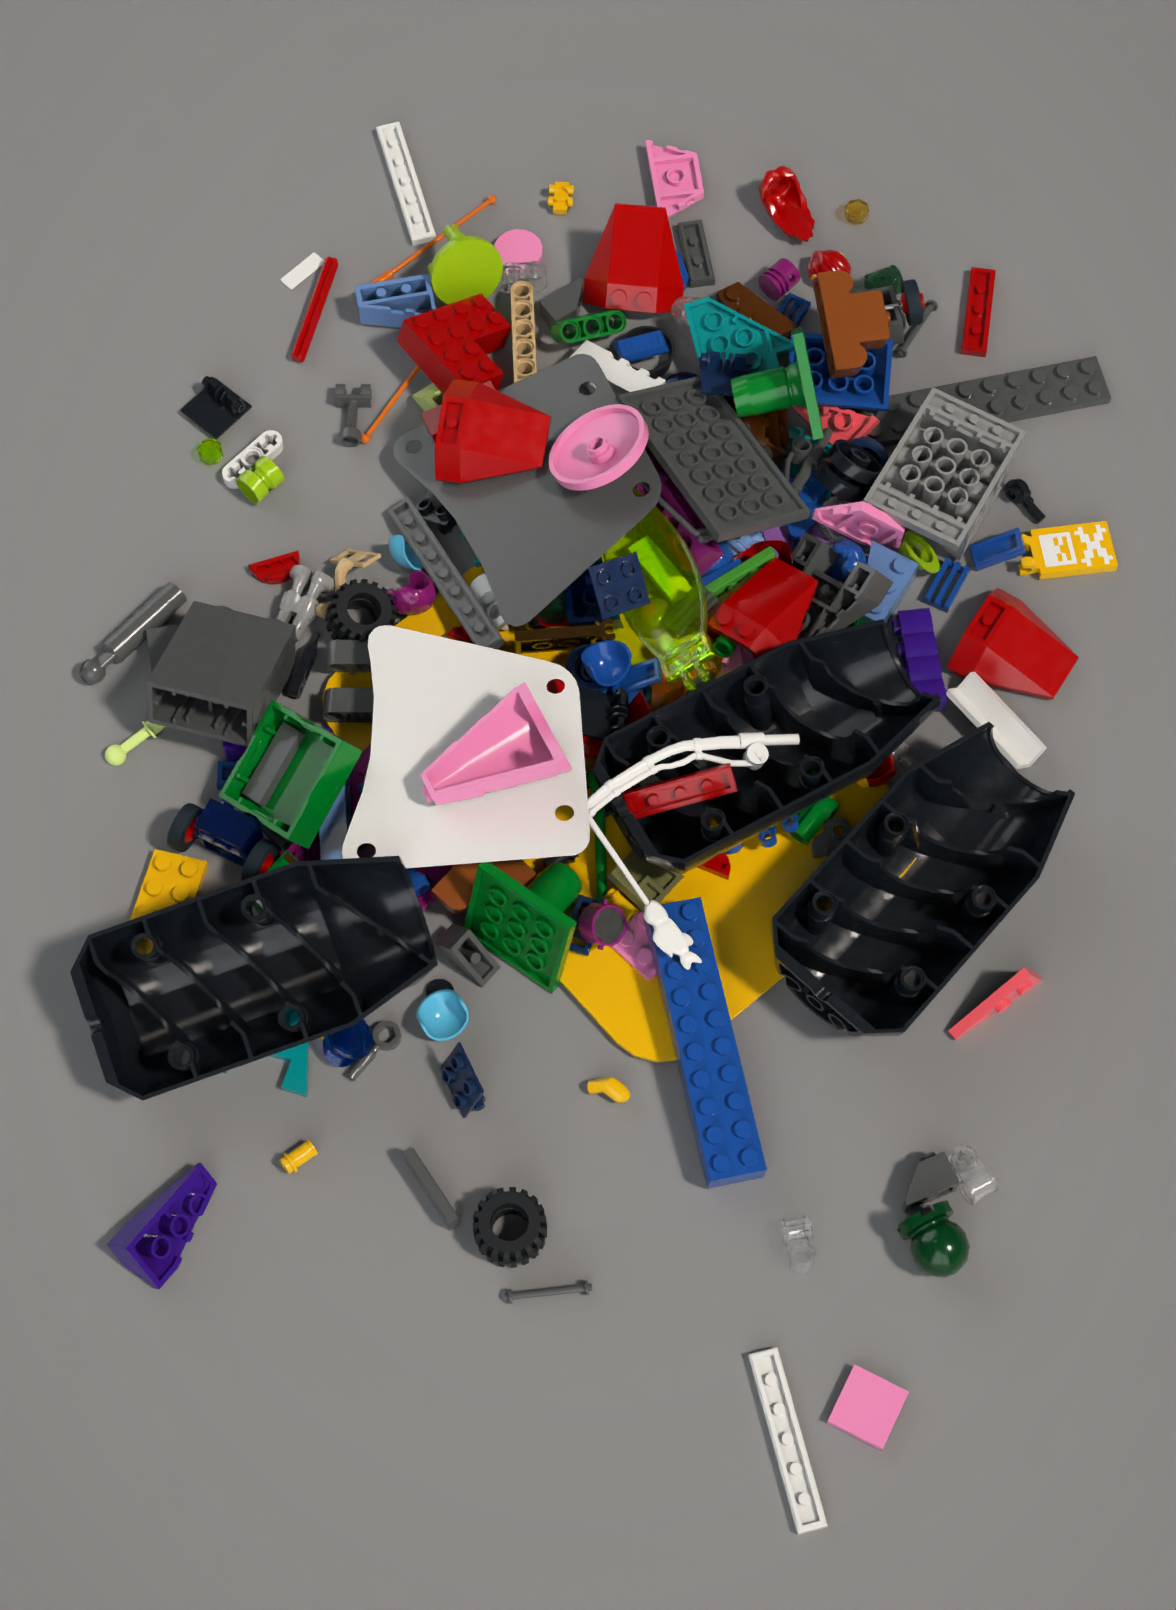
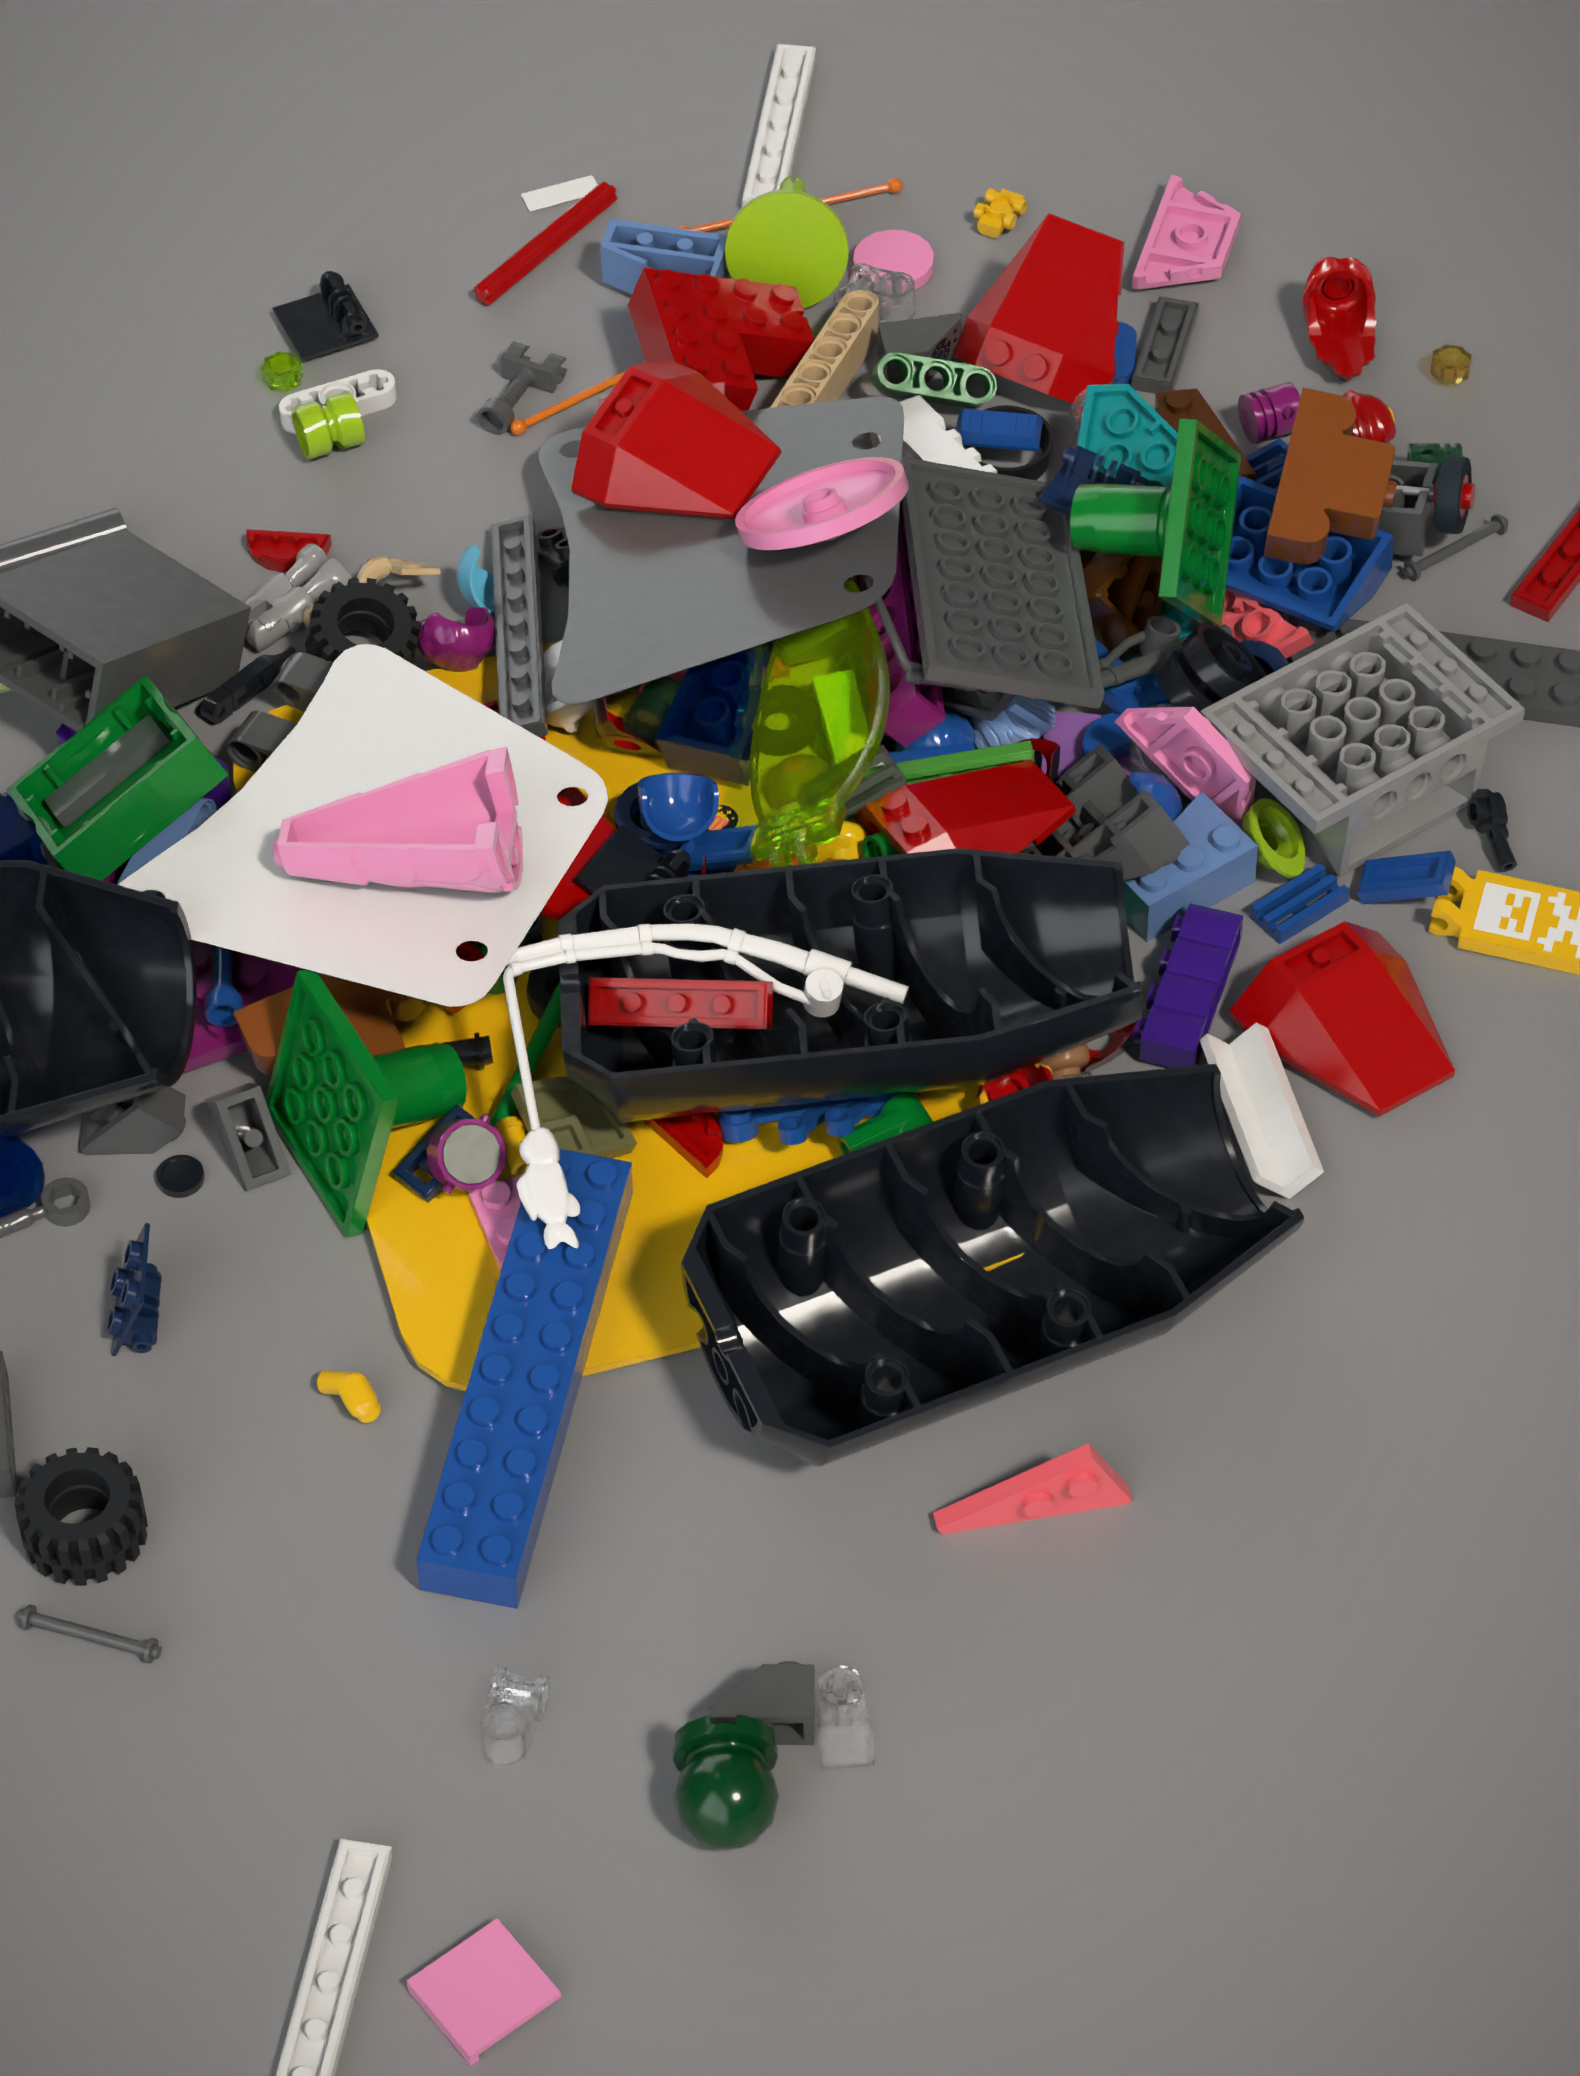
camera: 25 degrees right, 15 degrees down
(442, 1015) = (159, 1196): medium azure helmet -> none
(562, 638) = (630, 755): dark brown tile -> none
(618, 585) = (753, 703): dark blue hinge -> none

